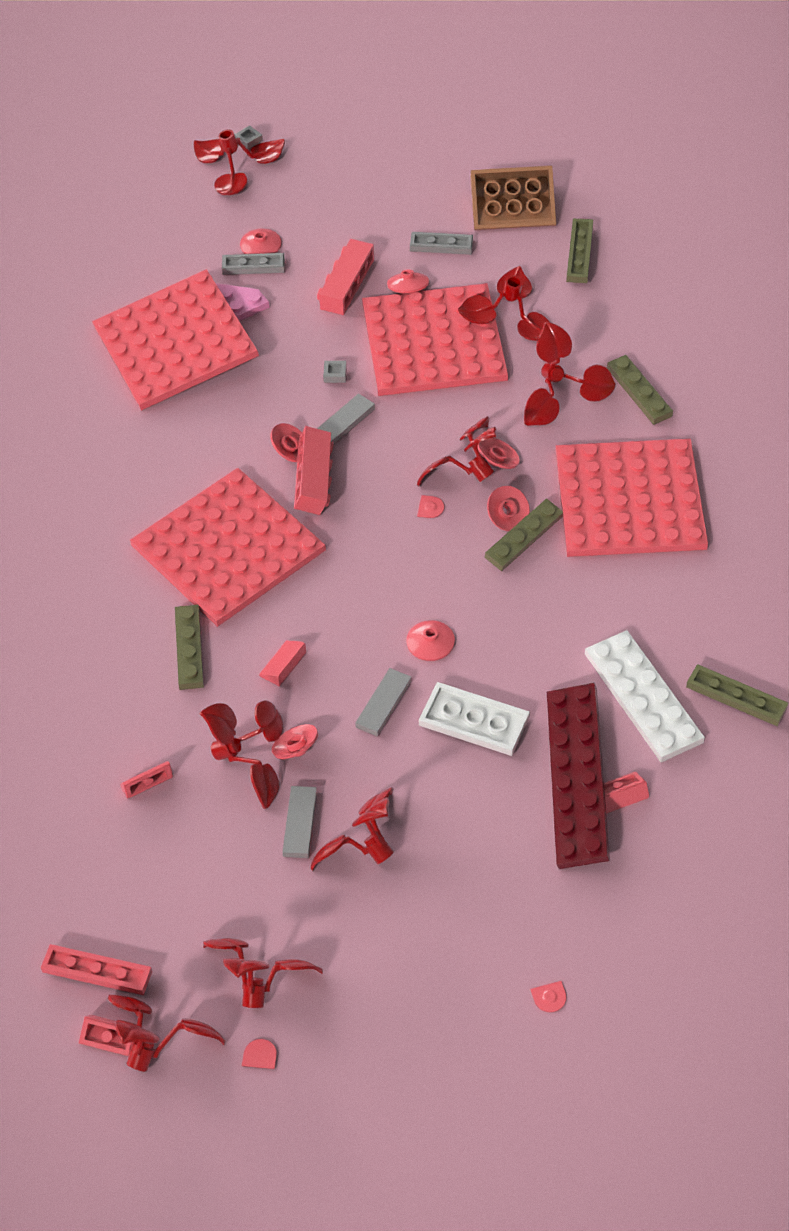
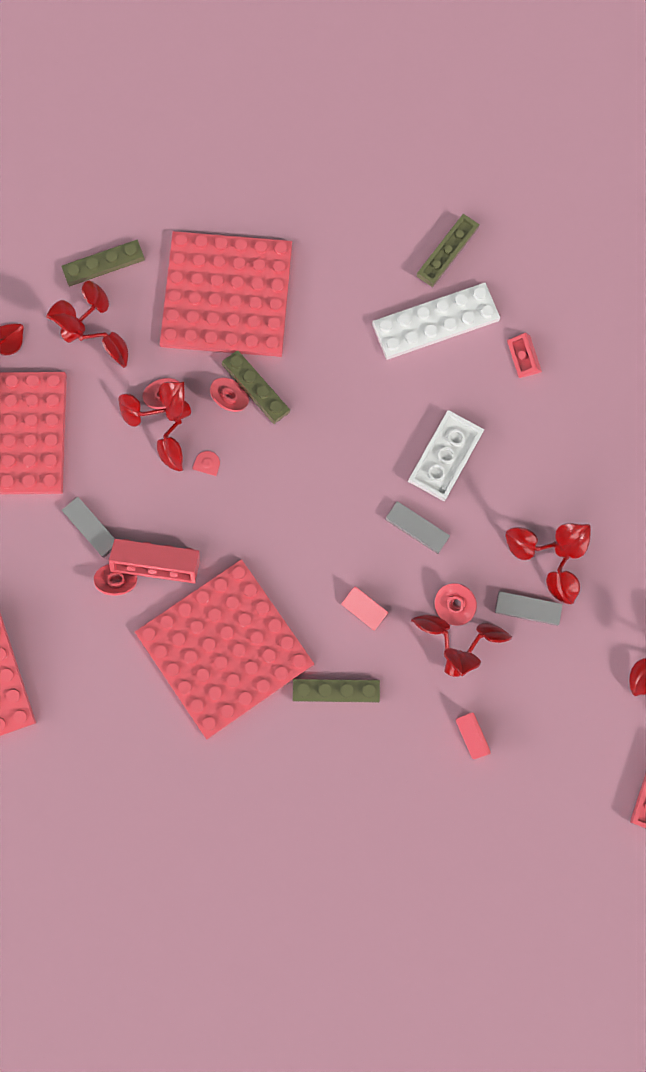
camera: 90 degrees left, 25 degrees up
(334, 372) = (28, 529): light grey plate -> none
(432, 647) = (356, 491): coral dish -> none
(577, 777) = (510, 383): dark red plate -> none

